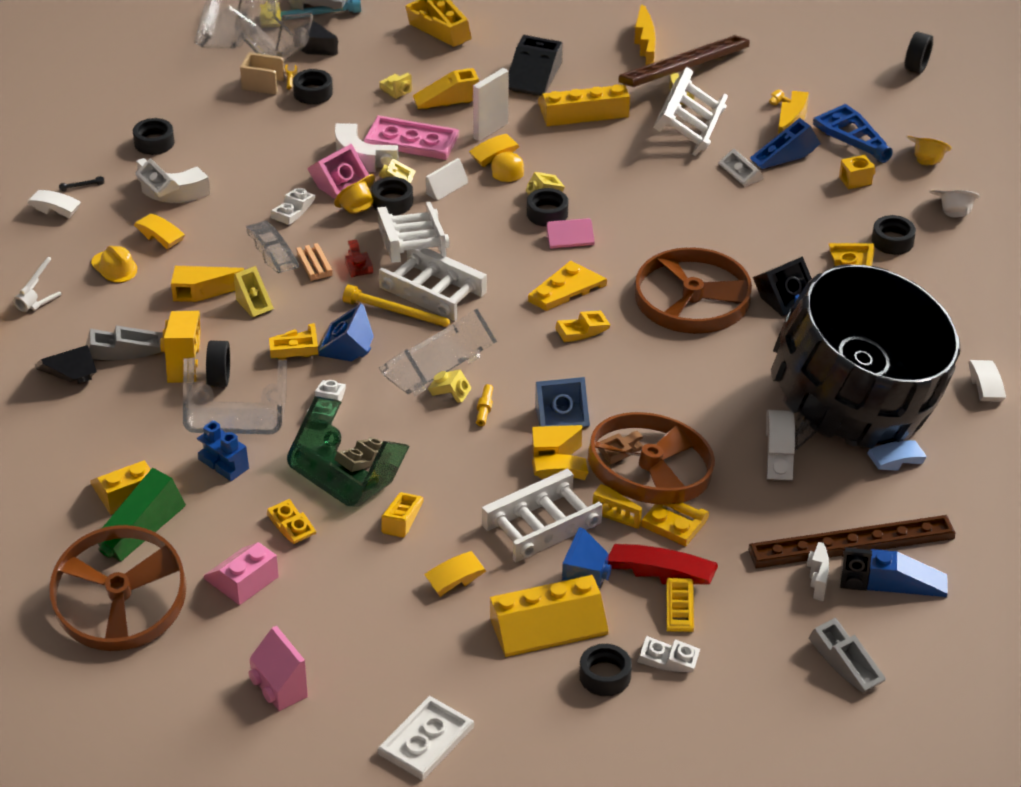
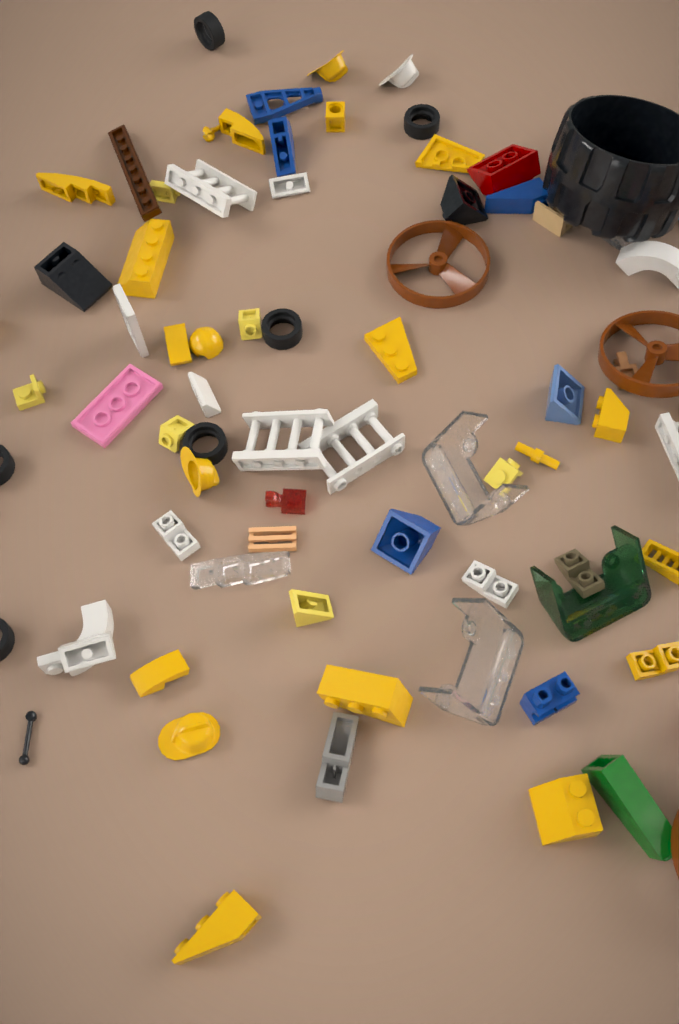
camera: 65 degrees left, 20 degrees up
(28, 297) = (216, 847): white plant -> none
(47, 200) = (52, 778): white slope -> none
(69, 365) = (353, 826): black slope -> none
(201, 282) = (266, 659): yellow slope -> none
(218, 363) = (417, 666): black tyre -> none
(294, 343) = (396, 587): yellow wing -> none
(338, 171) = (149, 478): bright pink slope -> none
(354, 295) = (342, 517): yellow piece -> none
(371, 155) = (120, 457): white arch -> none
(448, 90) = (71, 351): yellow slope -> none
(548, 465) = (641, 422): yellow slope -> none
(570, 233) = (325, 325): bright pink slope -> none
(587, 325) = (454, 353): yellow slope -> none

